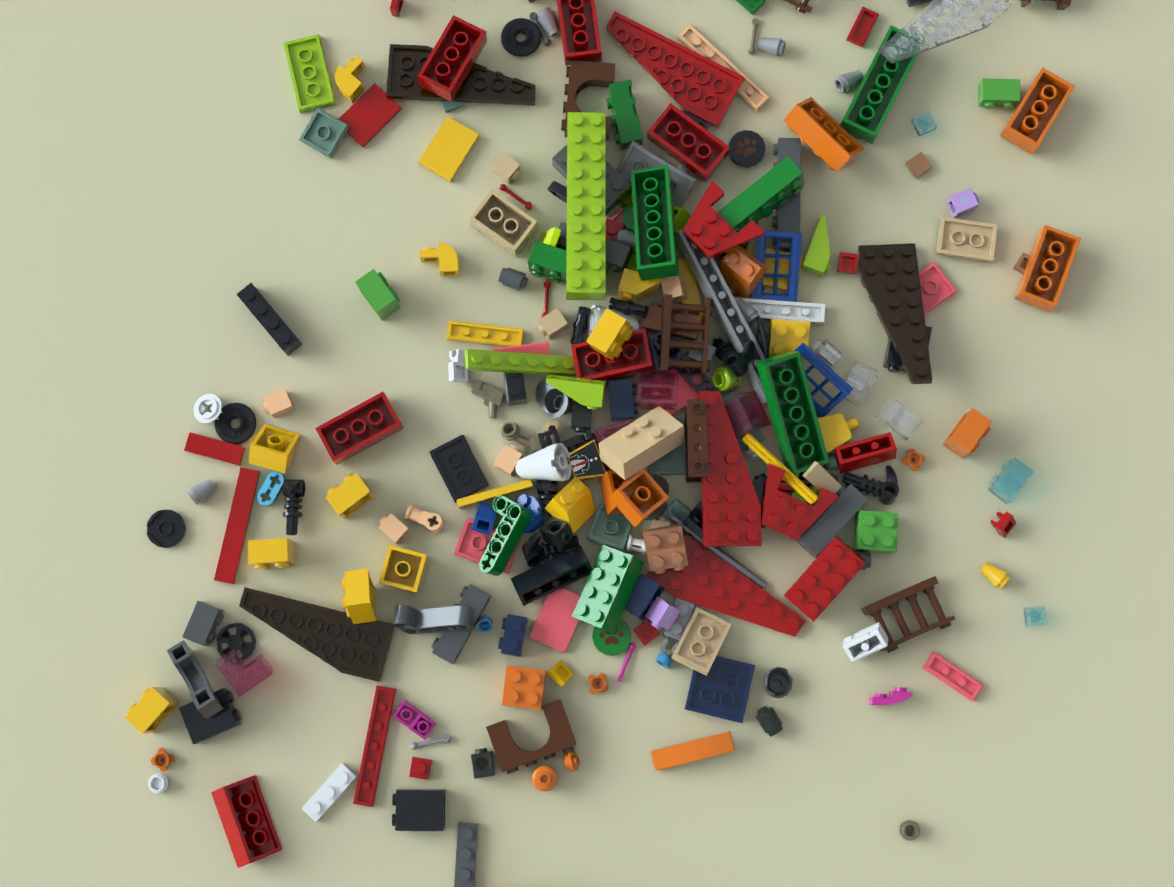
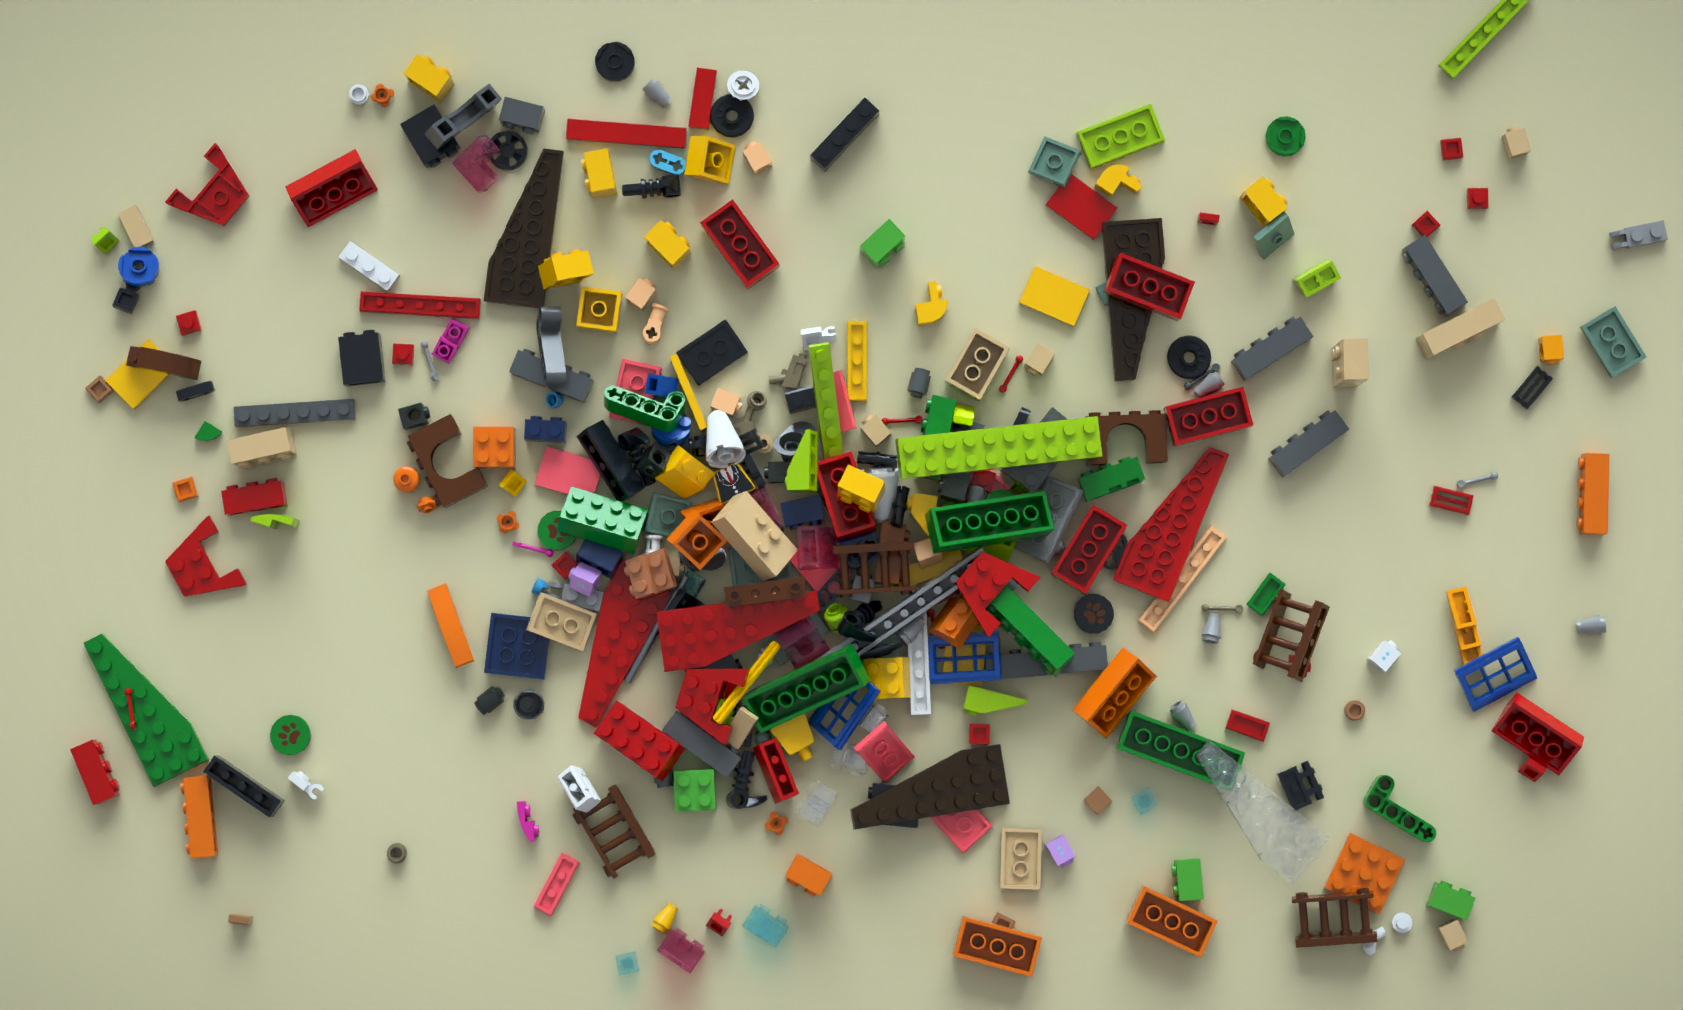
camera: 80 degrees right, 5 degrees up
(858, 348) = (884, 752): none -> coral tile
(1029, 562) = (681, 950): none -> clear pink slope

